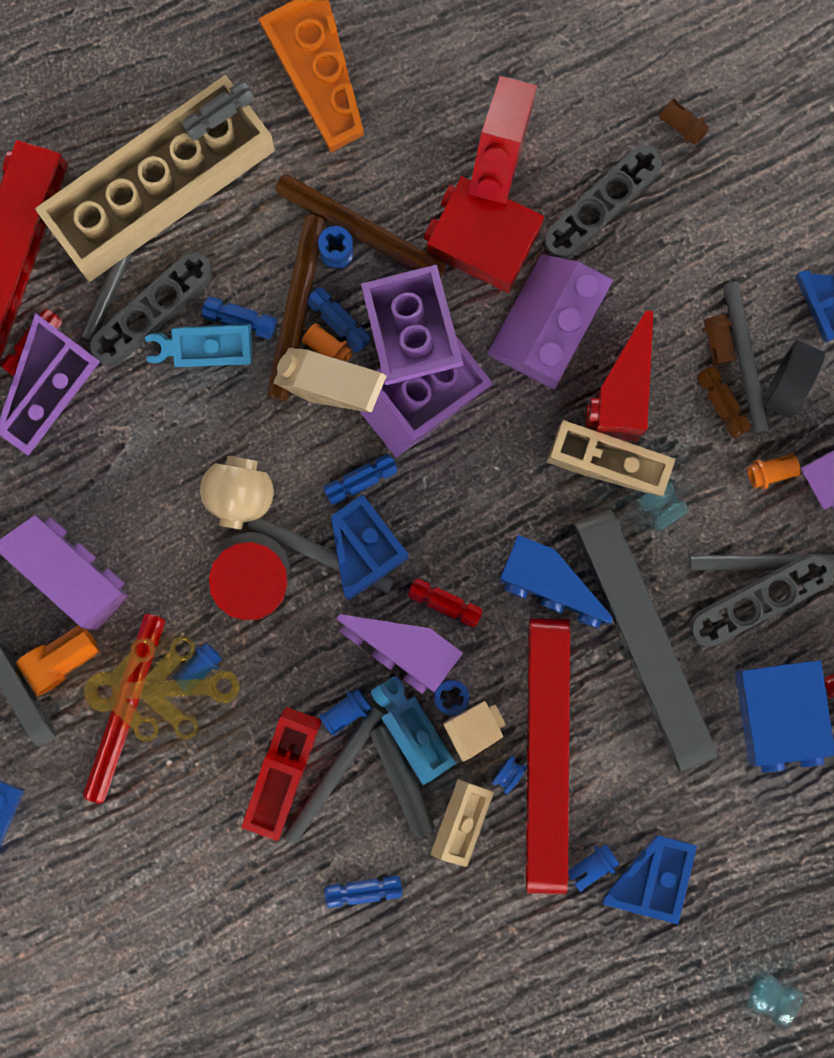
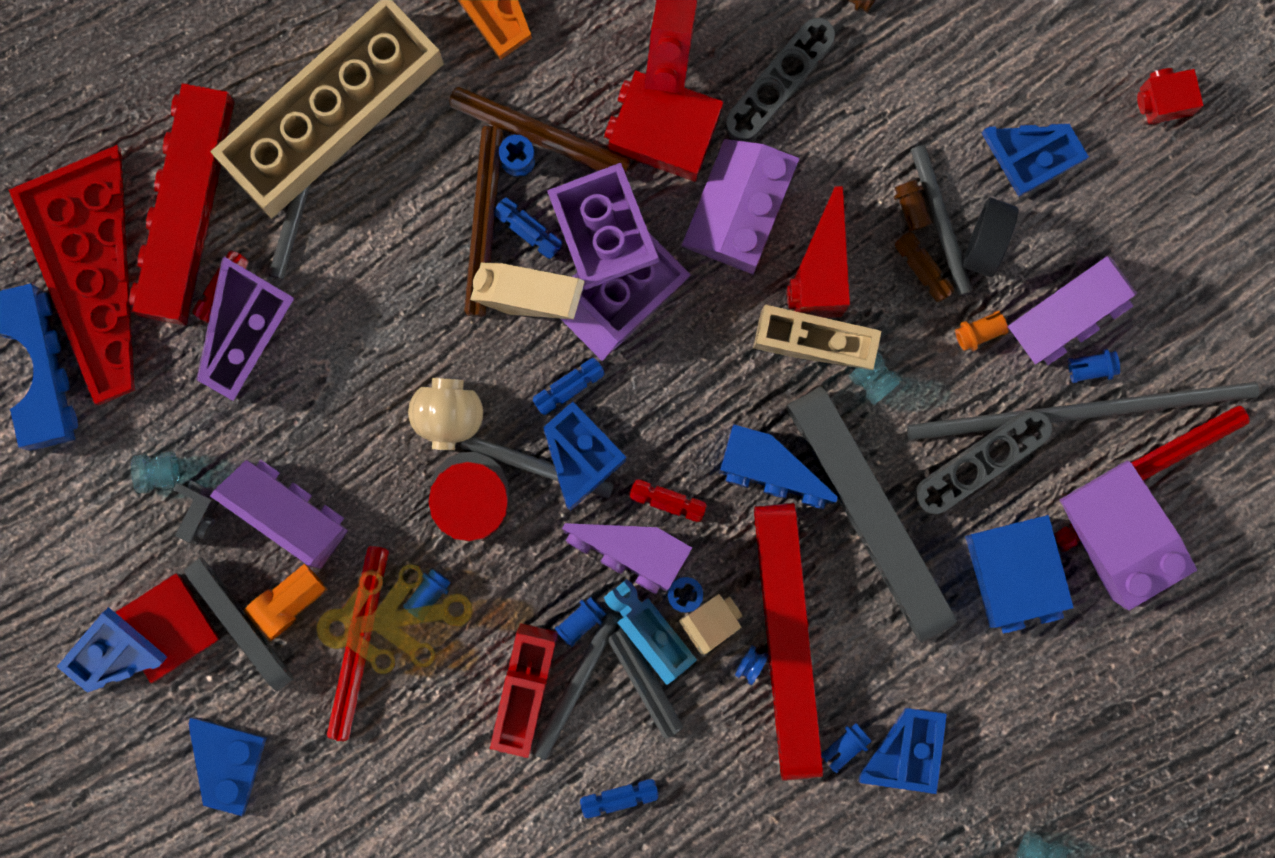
camera: 10 degrees left, 0 degrees up
(147, 304) = (332, 234): dark grey beam -> none
(205, 345) = (396, 269): dark azure plate -> none
(218, 110) = (383, 32): dark grey axle -> none
(234, 314) = (427, 237): blue axle -> none
(326, 344) = (518, 254): orange pin -> none
(462, 823) = (710, 718): tan plate -> none

